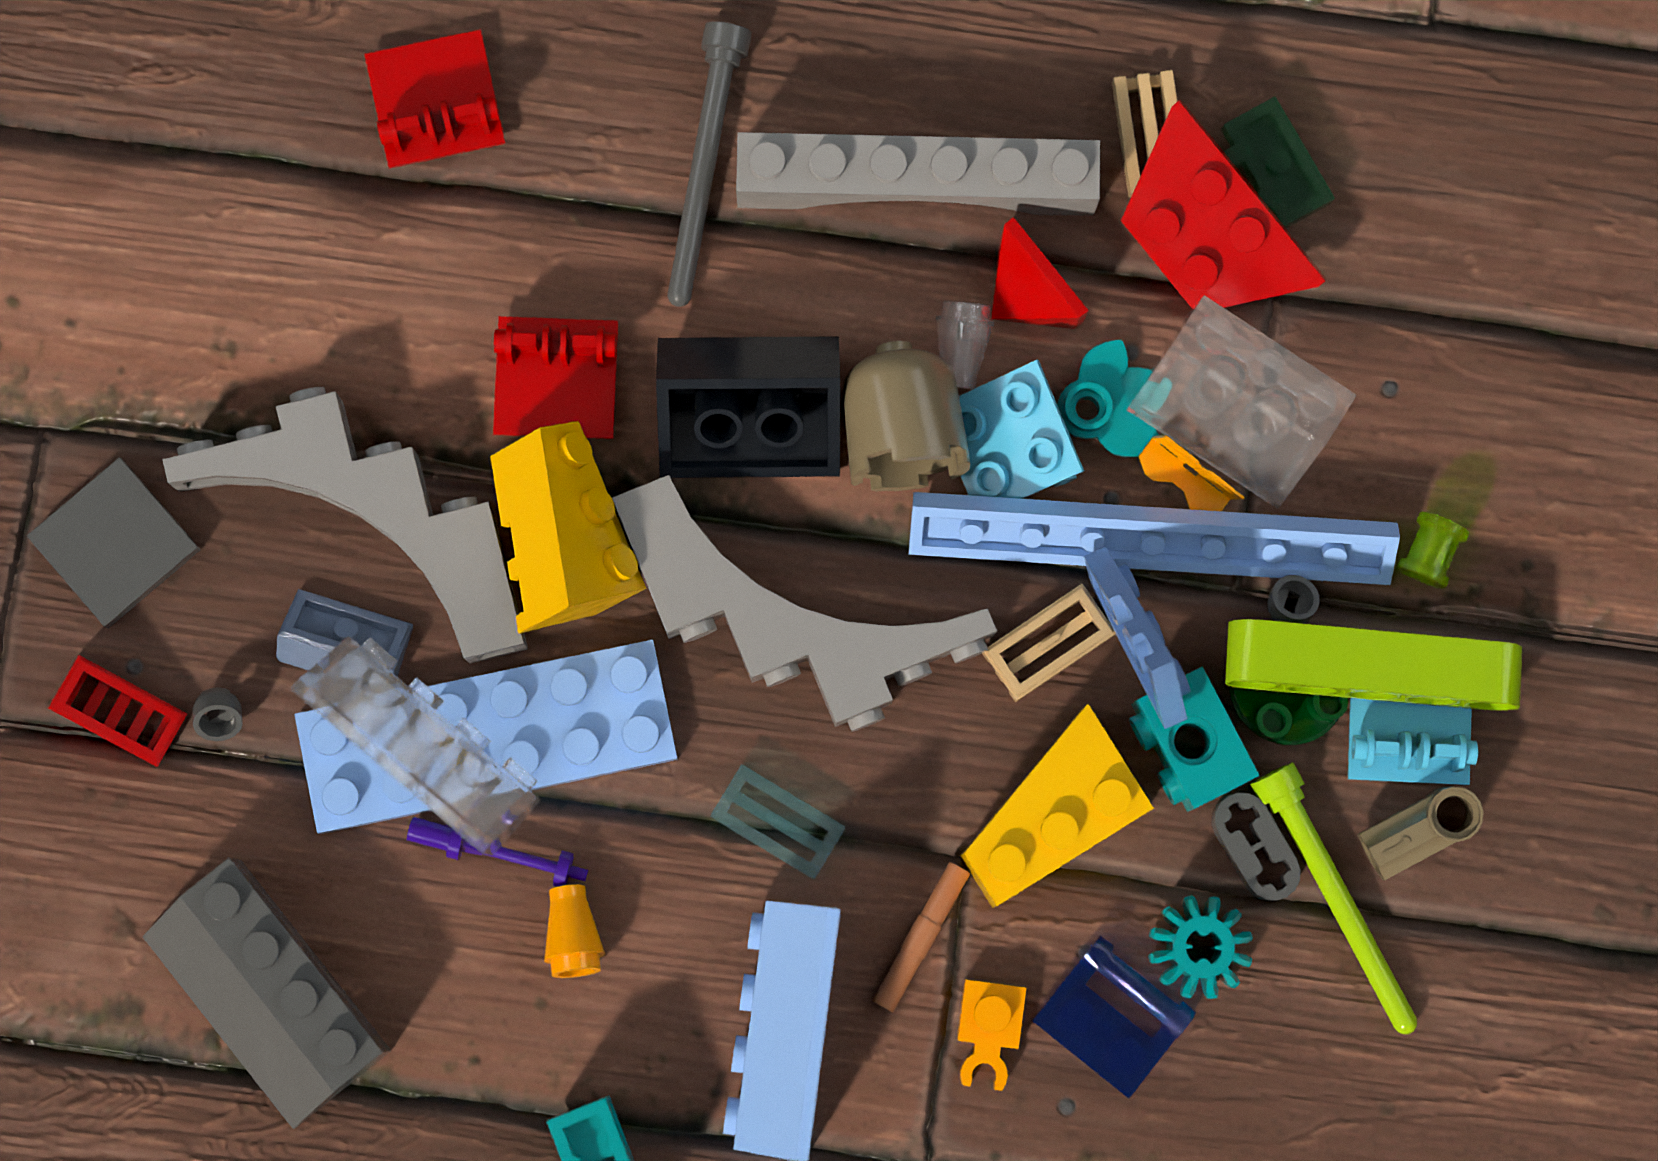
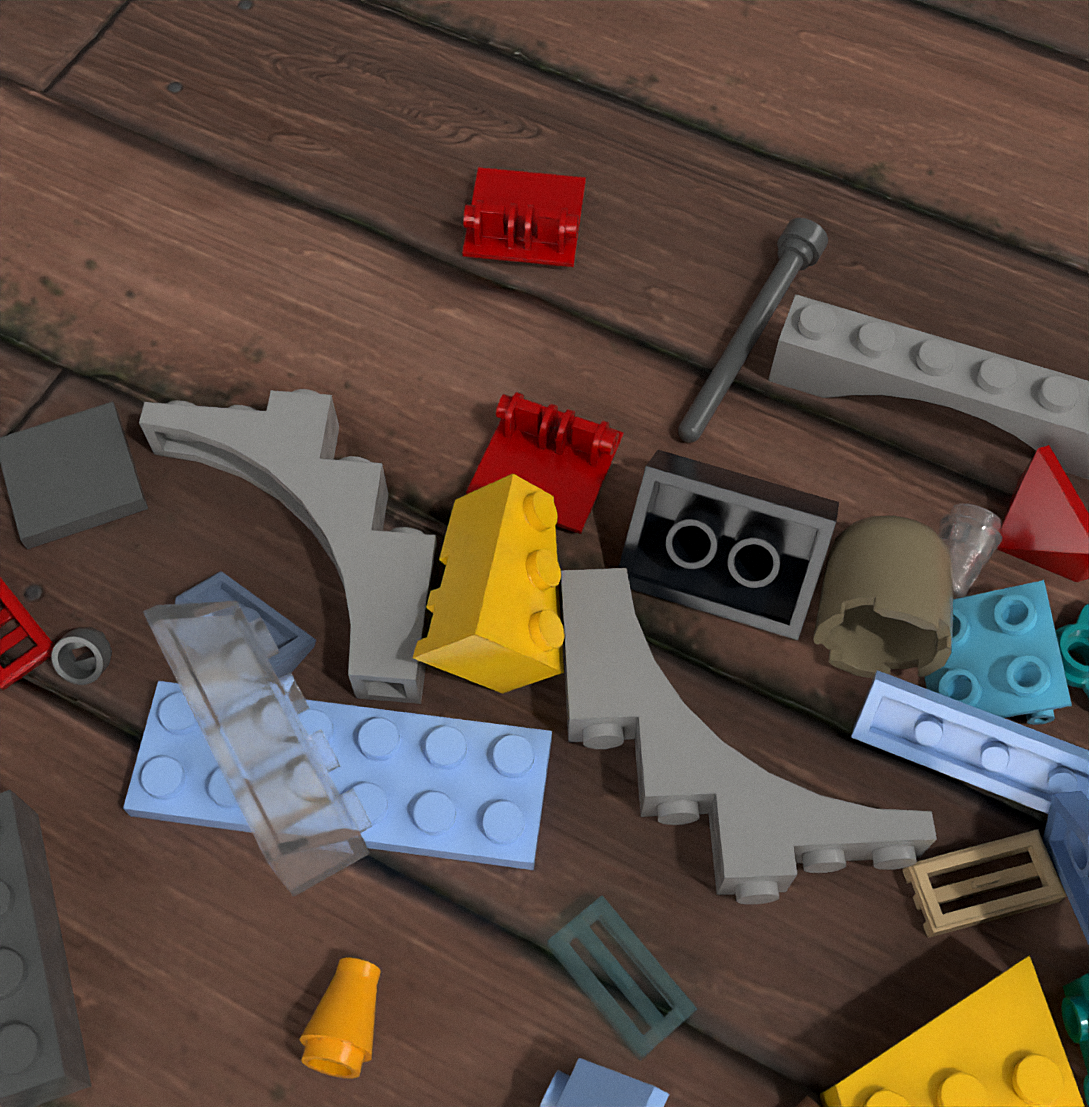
camera: 25 degrees right, 20 degrees down
(447, 839) = (260, 875): dark purple piece -> none

